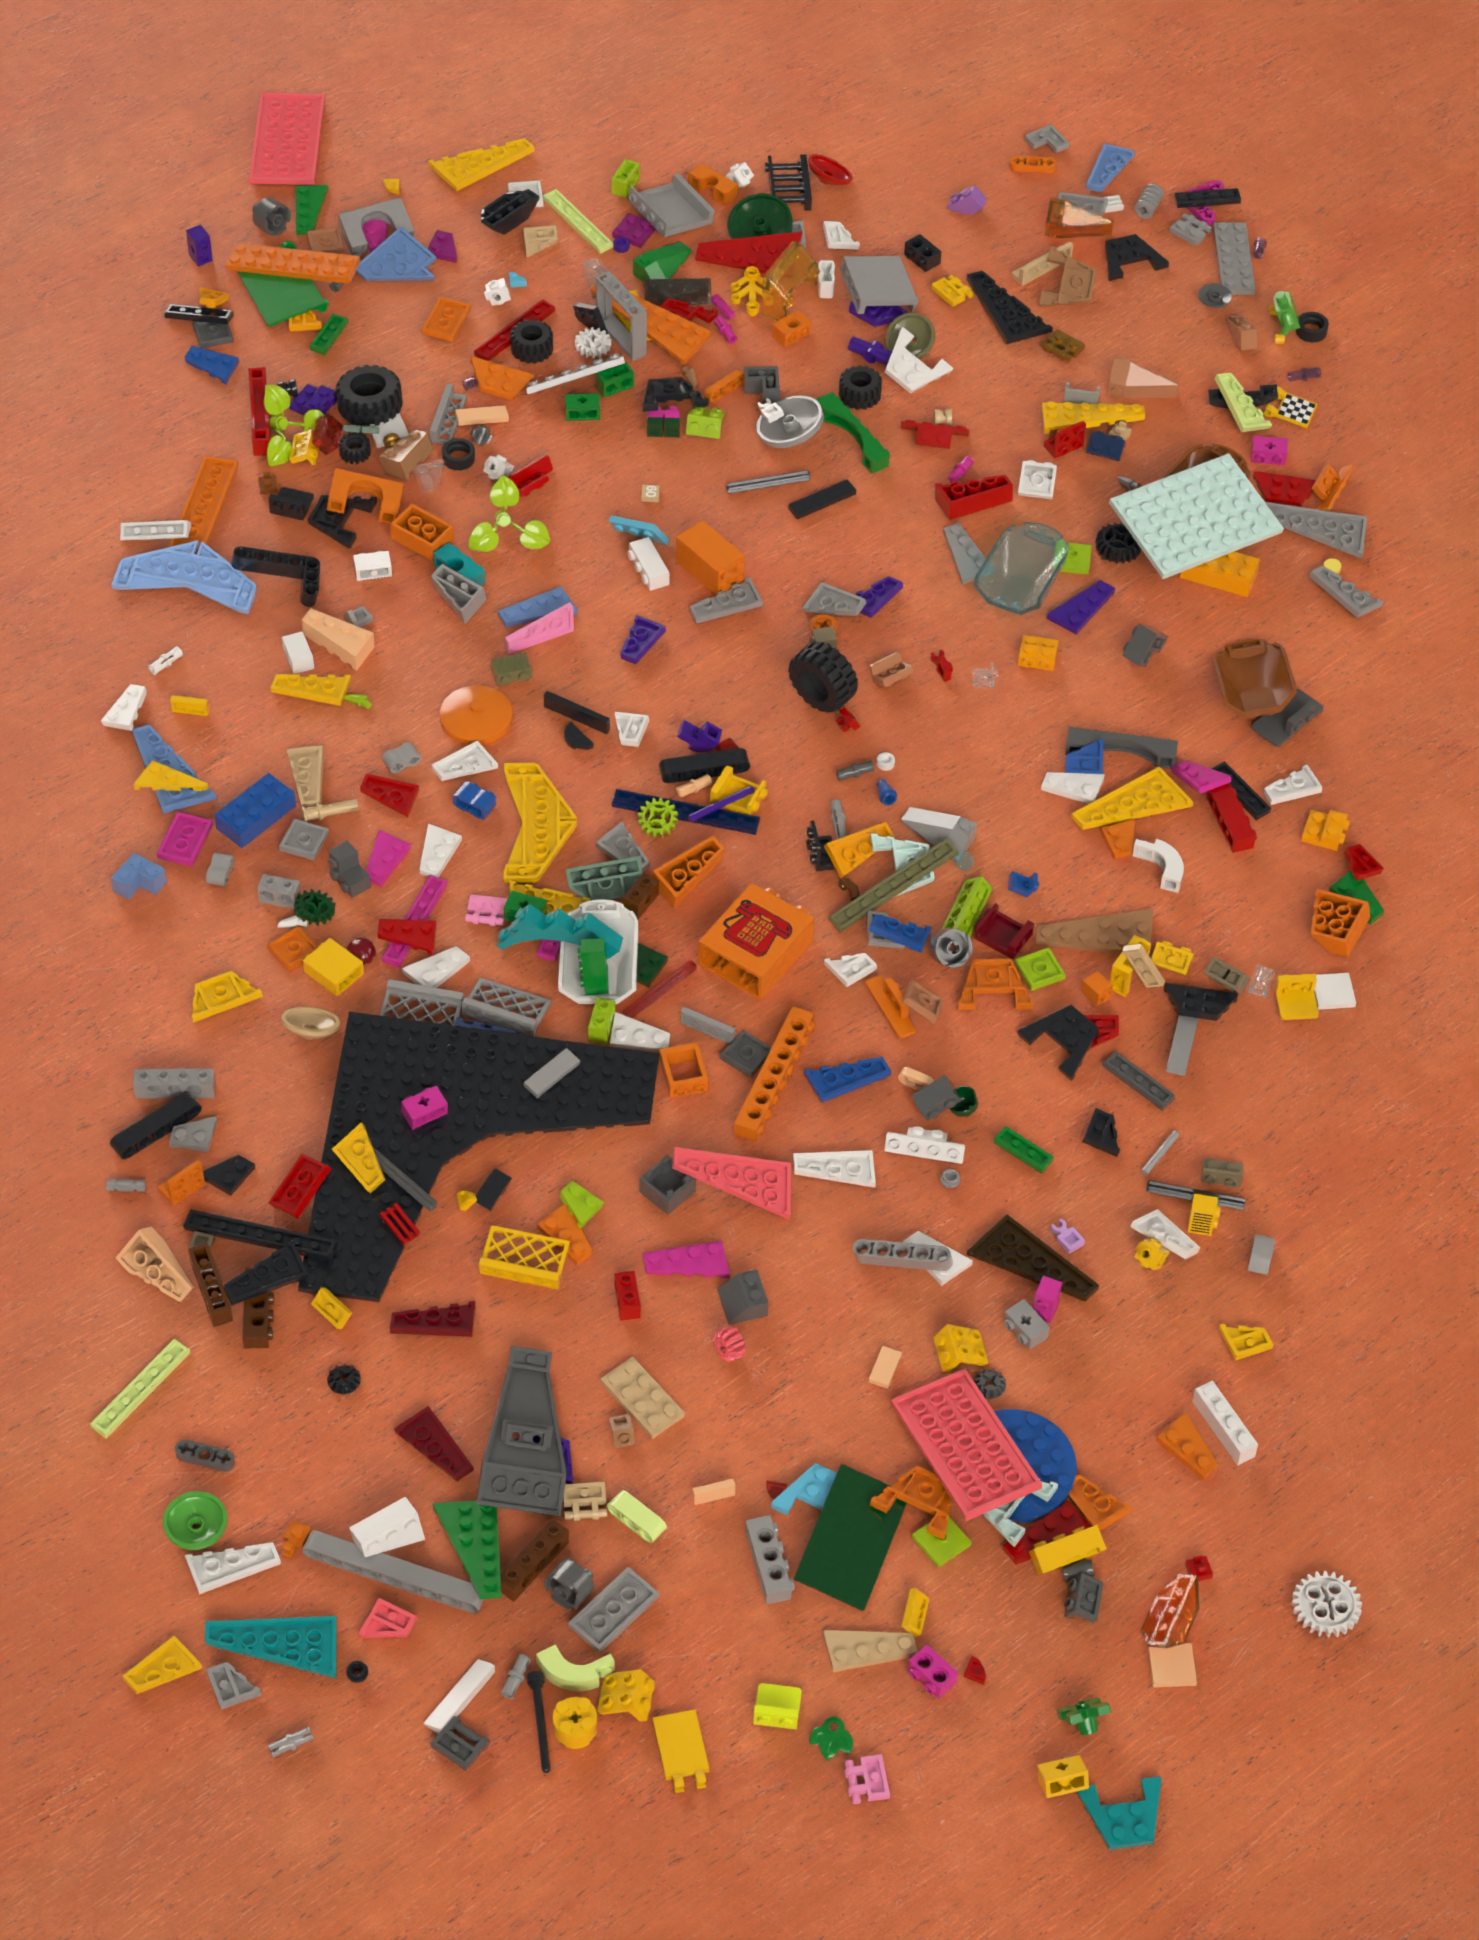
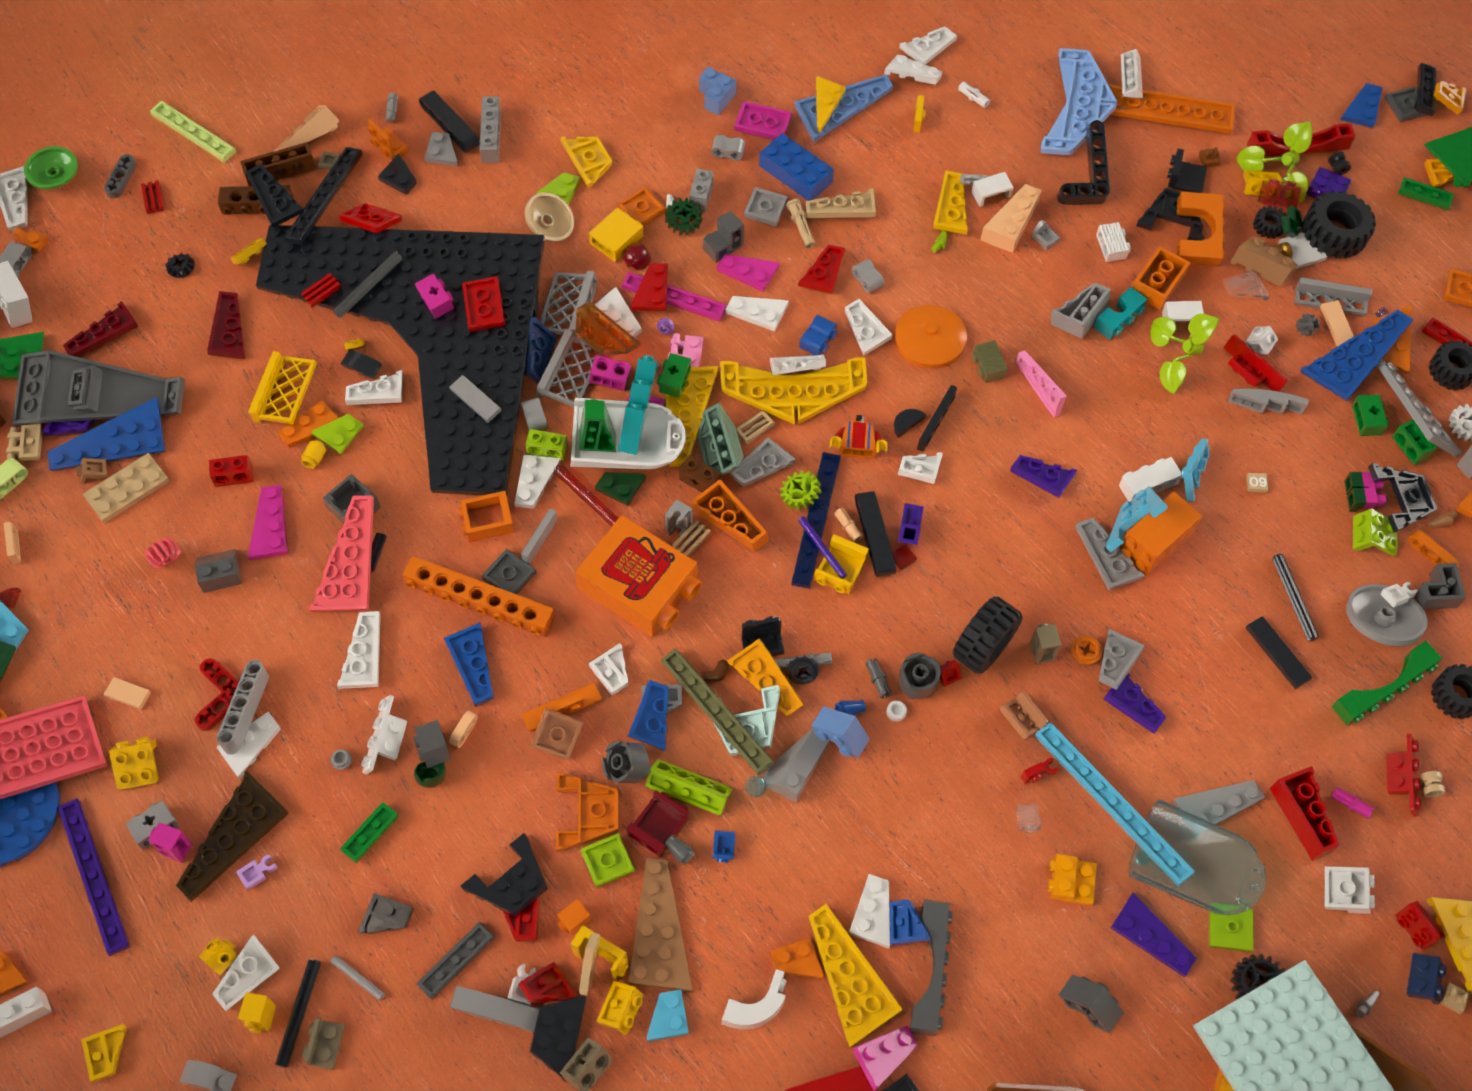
camera: 90 degrees right, 10 degrees up
(91, 693) = (929, 46): none -> white wing
(239, 1415) = (150, 186): none -> red tile
(262, 1021) = (562, 186): none -> lime wing
(285, 664) = (969, 179): none -> light grey axle
(359, 1157) = (382, 250): yellow wing -> none
(435, 1065) = (483, 304): none -> red tile
(456, 925) = (665, 326): none -> medium lavender plate
(458, 444) = (1281, 297): black tyre -> none
(463, 521) = (1182, 310): none -> white panel
(471, 968) = (602, 332): none -> clear orange wedge
(510, 818) = (797, 363): none -> white wing
(514, 968) = (608, 376): none -> dark pink brick
(526, 409) = (1355, 359): none -> blue wing
(526, 1173) = (379, 391): none -> white wing
(535, 607) = (1081, 390): medium blue wing -> none
(565, 472) = (1260, 399): none -> light grey slope
(565, 1031) = (534, 414): none -> light grey axle
(575, 857) = (743, 436): none -> tan tile
(584, 1409) = (118, 439): none -> blue wing
(600, 770) = (858, 439): none -> torso
(606, 1224) = (313, 454): none -> yellow brick
(689, 569) = (1132, 511): none -> medium azure wing
(691, 909) = (678, 517): none -> light grey hinge
(709, 905) = (701, 528): none -> tan tile
(850, 820) = (802, 677): none -> black gear
(855, 737) = (928, 676): none -> dark grey brick
(887, 1281) = (224, 697): none -> red beam
(913, 792) = (842, 730): none -> medium blue brick
(972, 614) = (1115, 804): none -> medium azure plate
(994, 1390) = (89, 797): dark grey gear -> none
(1030, 912) = (679, 849): none -> dark grey cone
(1077, 1373) = (93, 877): none -> dark purple tile
(1157, 1007) = (547, 985): none -> red wing
(1161, 1027) = (515, 992): none -> white plate
(1176, 926) = (669, 1017): none -> medium azure wing

